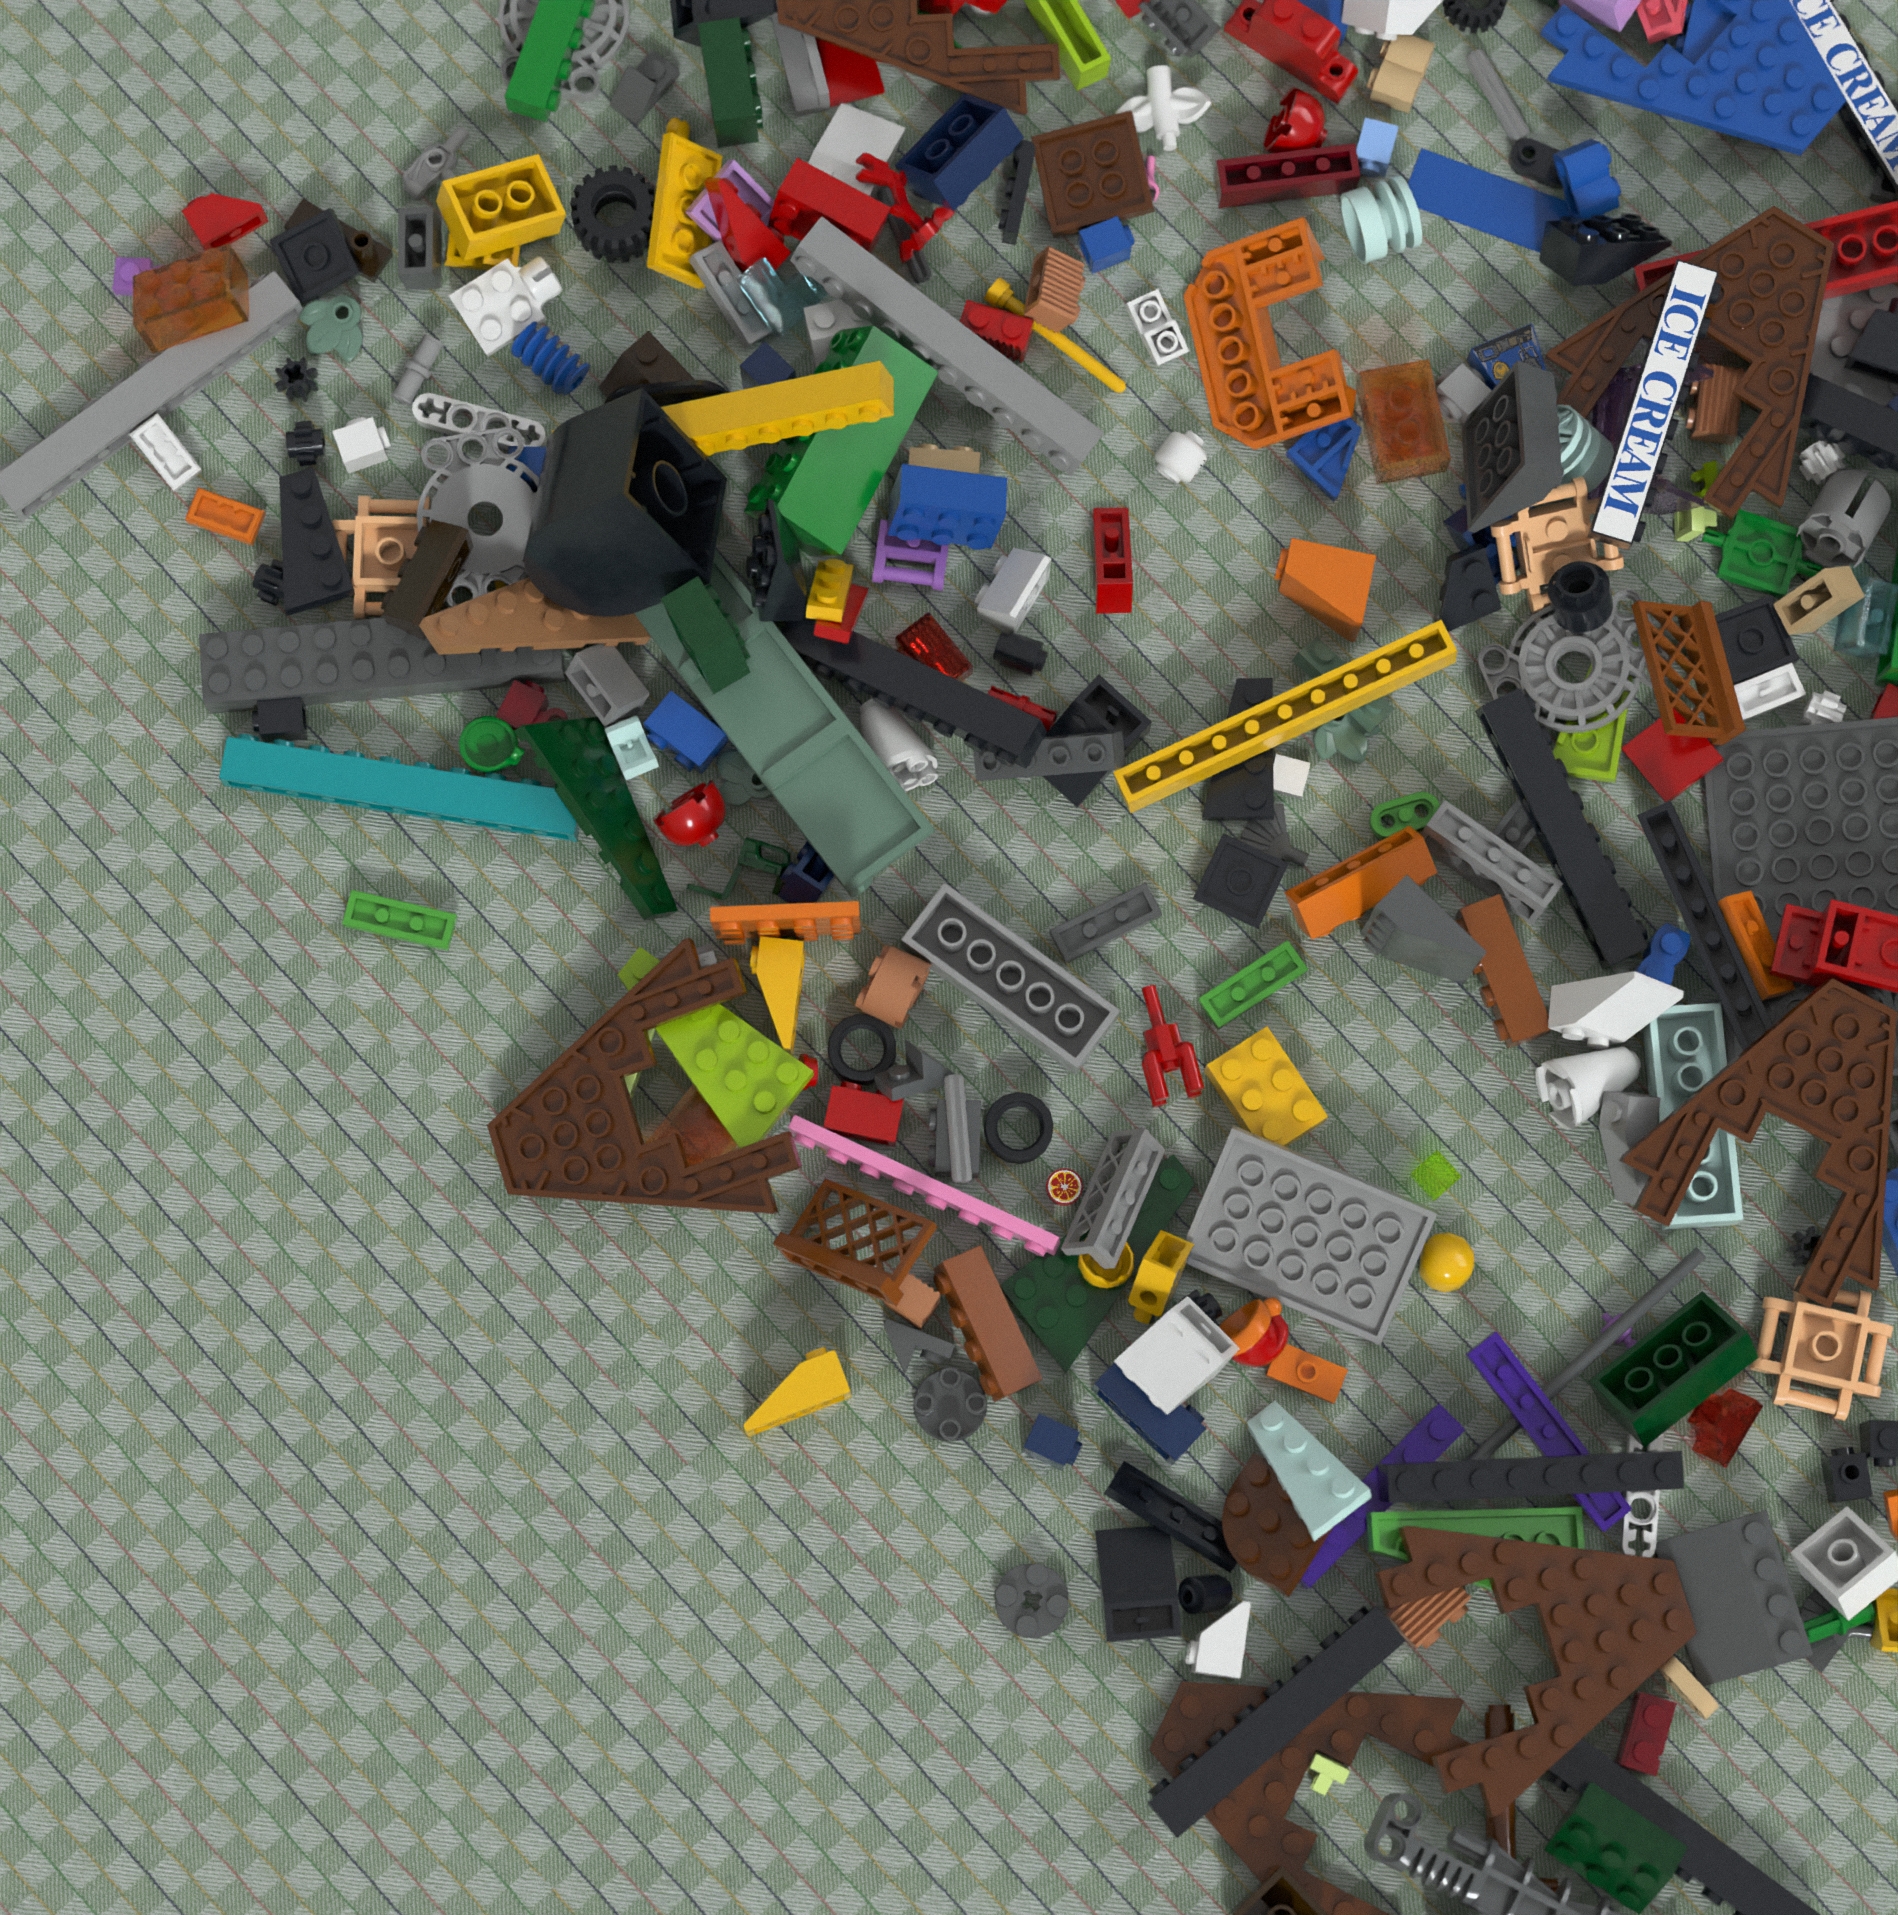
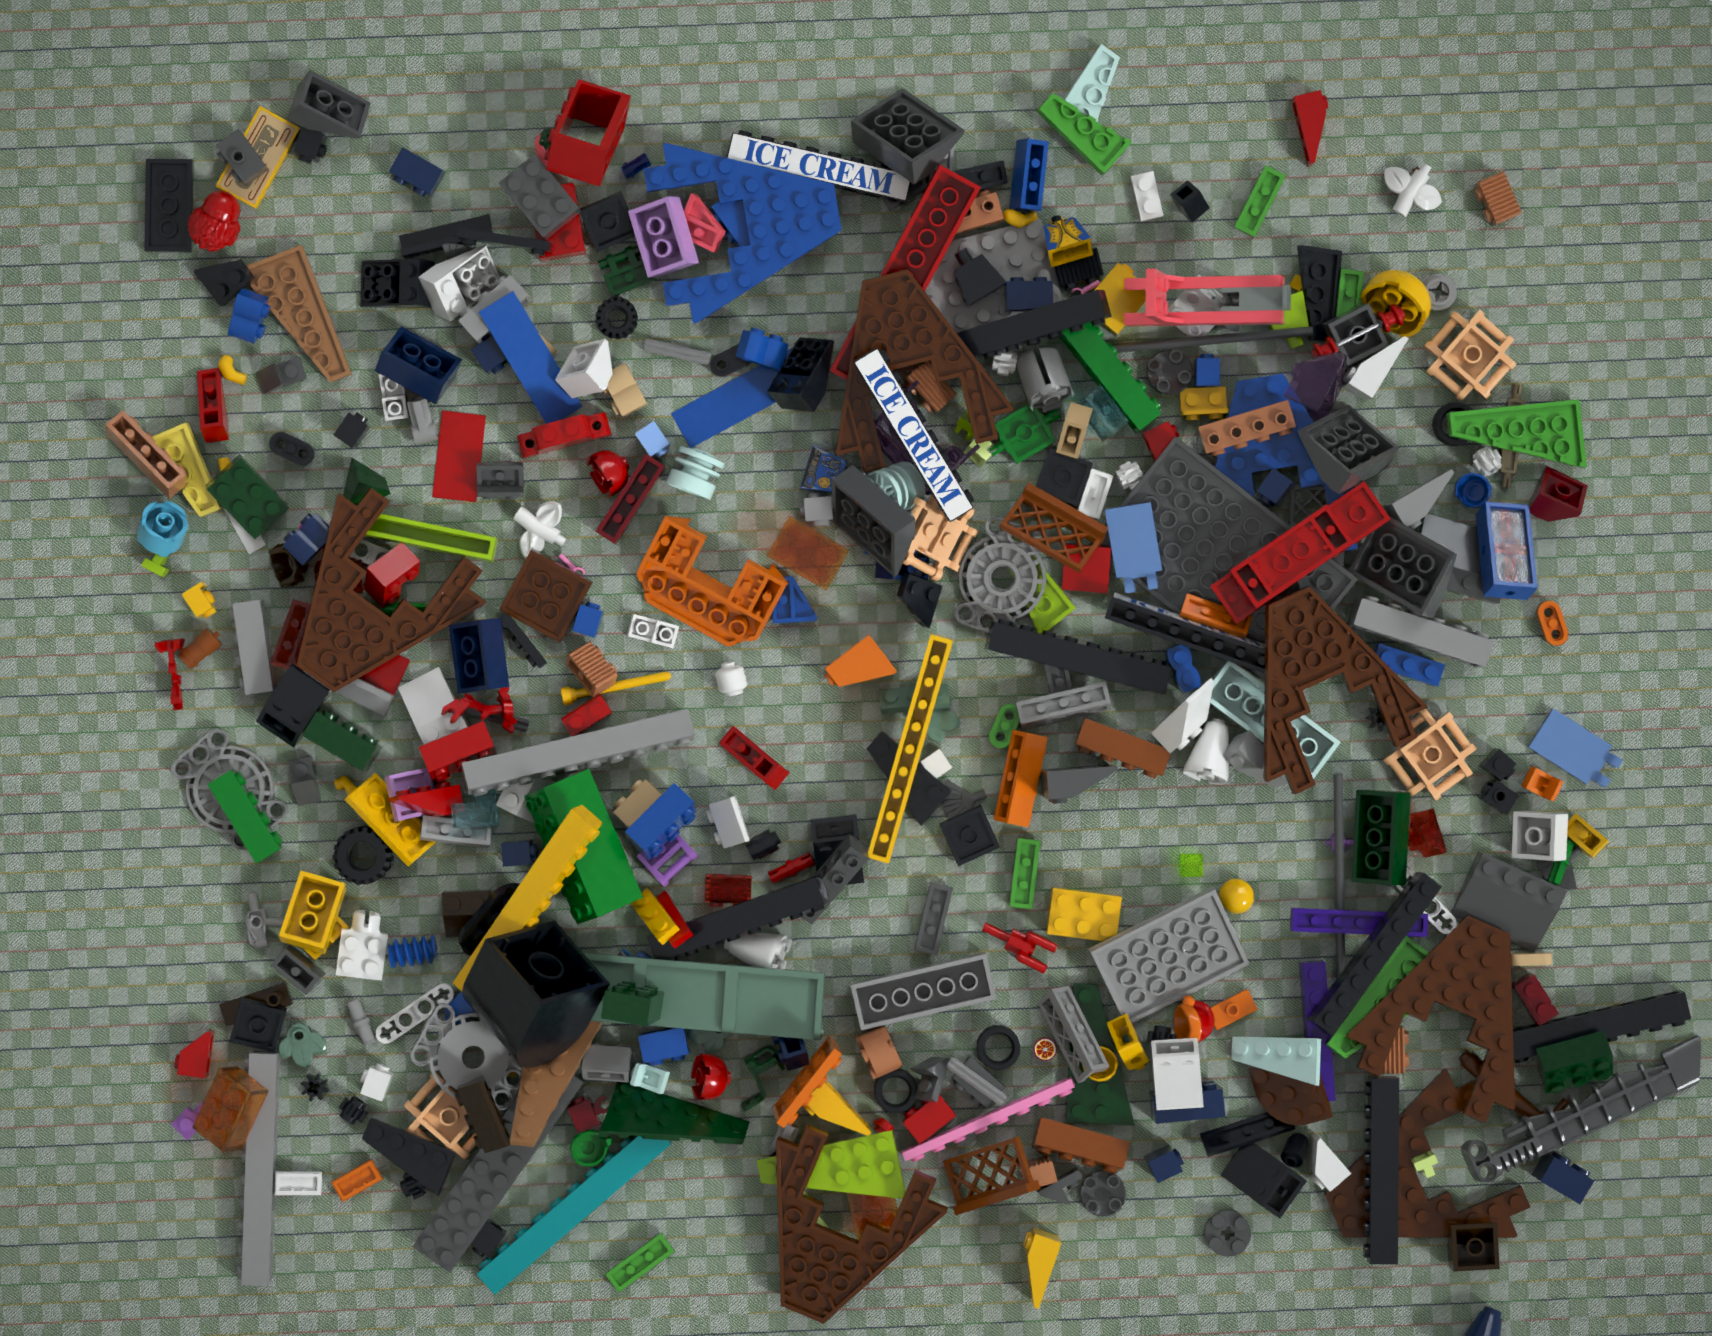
camera: 50 degrees left, 10 degrees up
(776, 569) = (625, 936): black slope -> none
(1580, 597) = (984, 552): black piece -> none
(1751, 781) = (1134, 544): none -> medium blue tile

